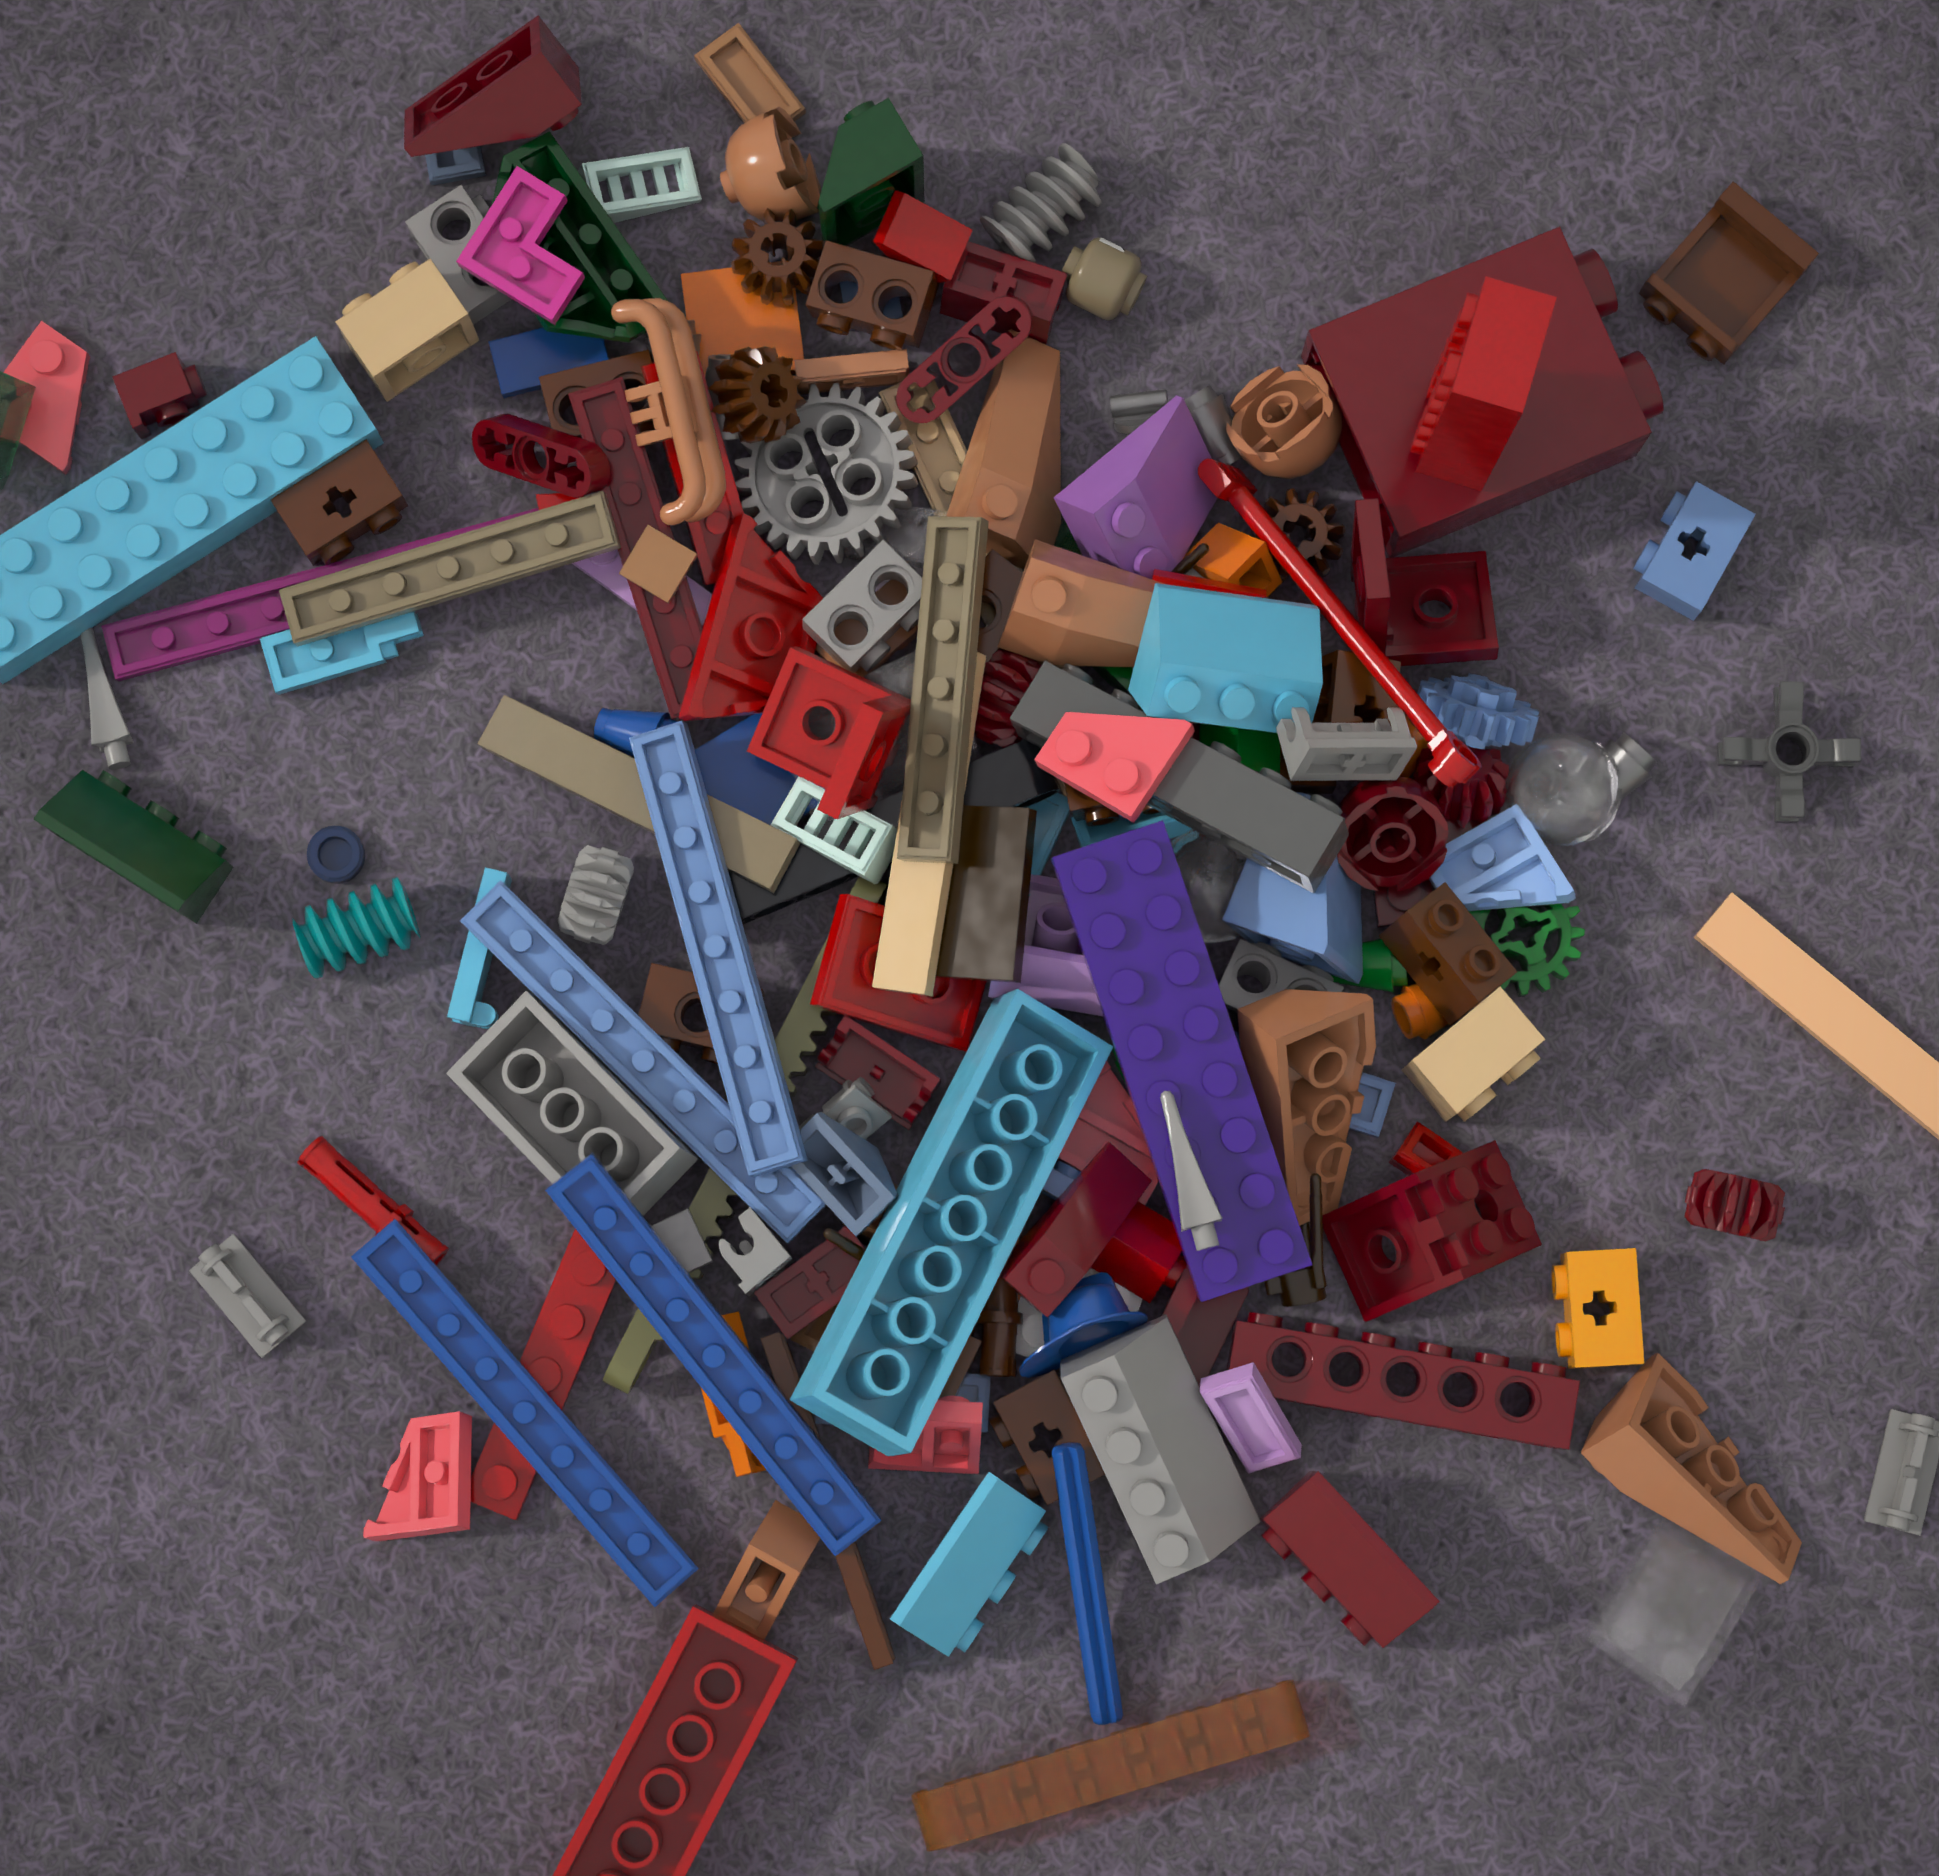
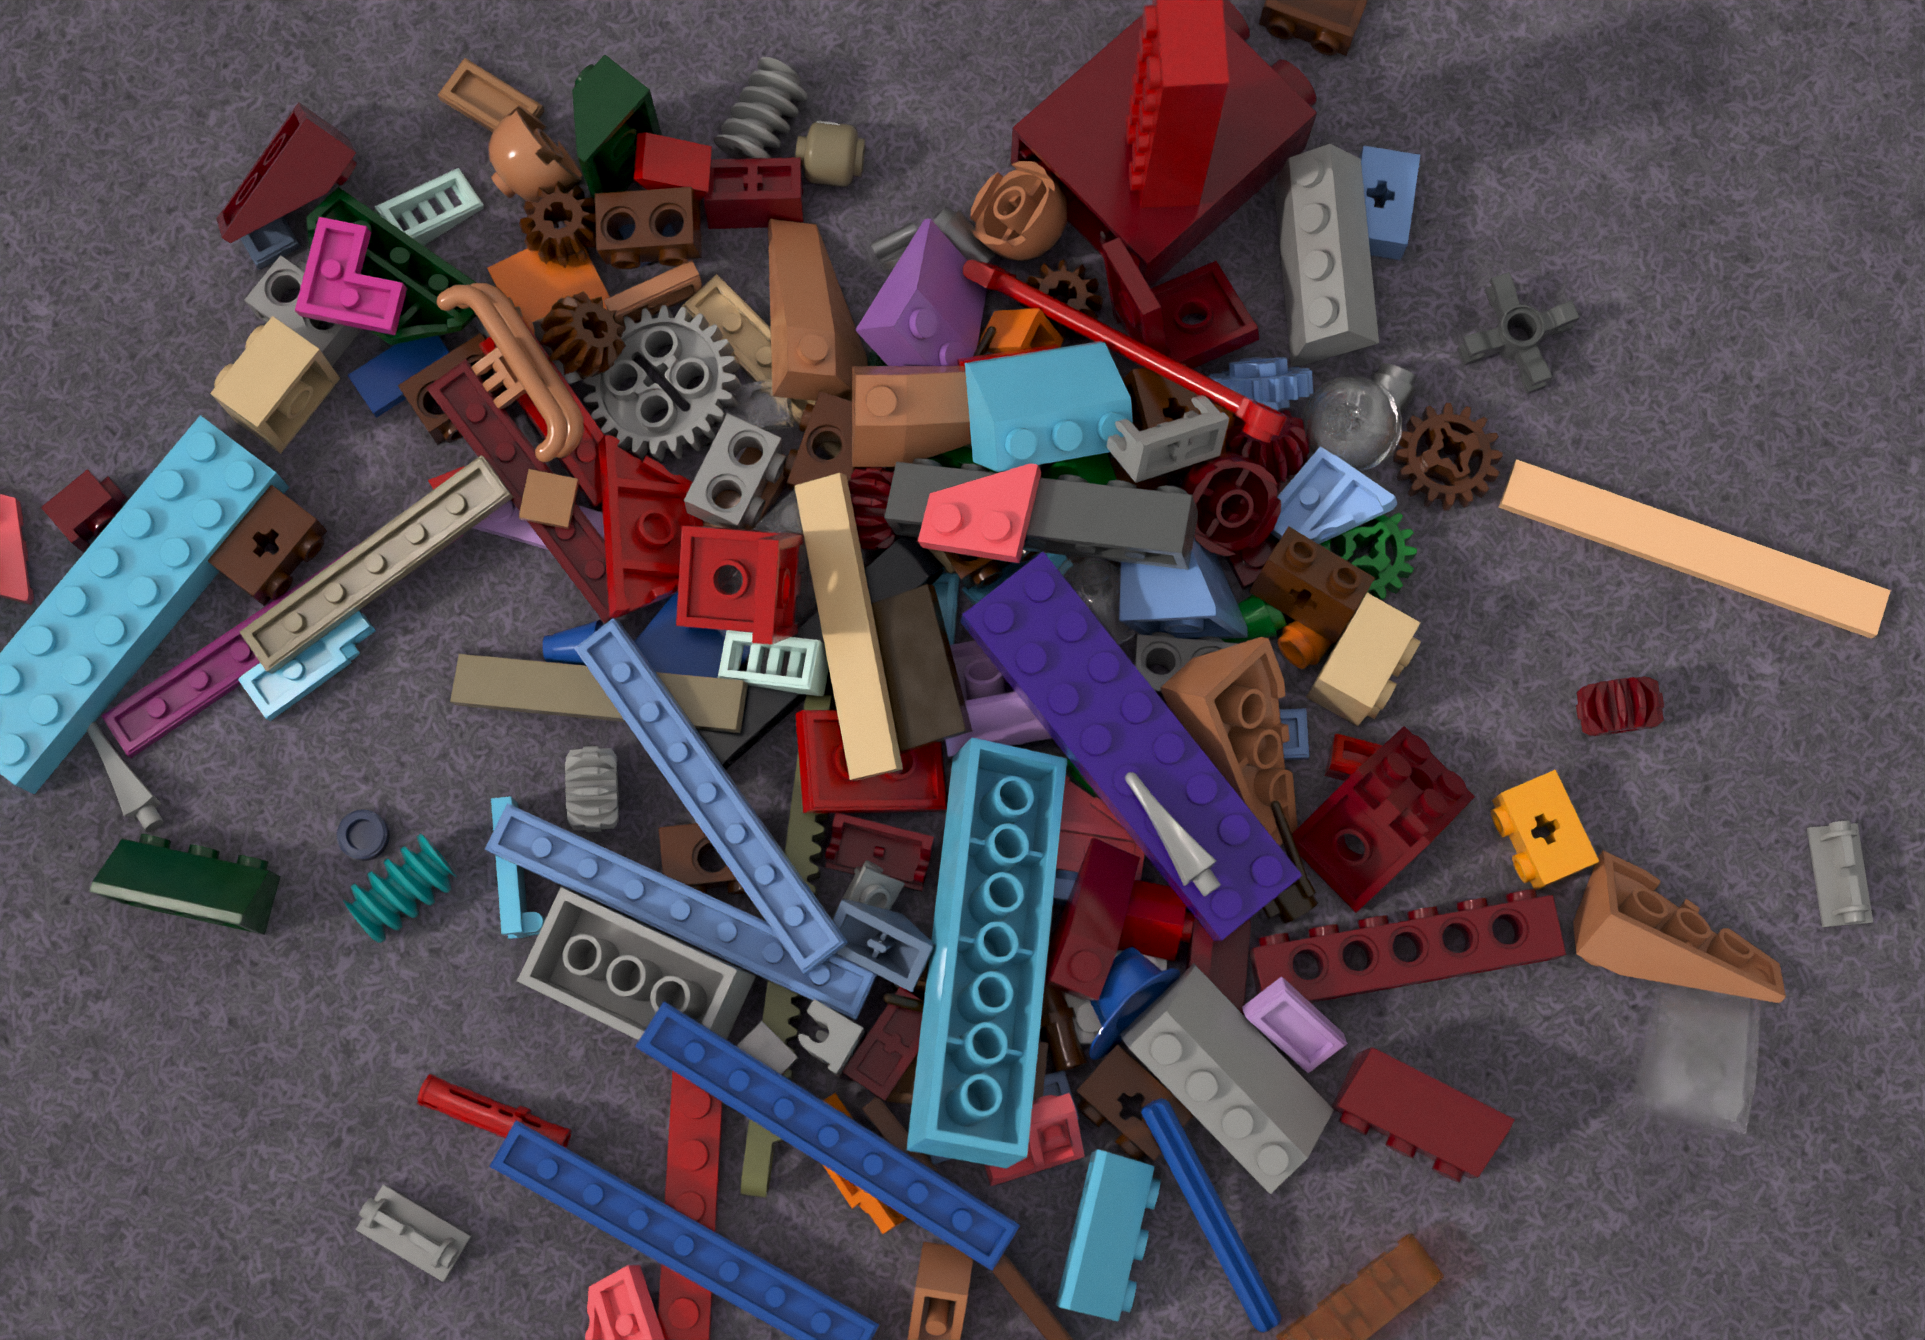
camera: 20 degrees left, 5 degrees down
(560, 449) = (433, 434): dark red beam -> none
(923, 375) = (769, 225): dark red beam -> none
(942, 689) = (821, 514): dark tan tile -> none
(1606, 591) = (1325, 255): none -> light grey slope
(1681, 861) = (1454, 475): none -> reddish brown gear

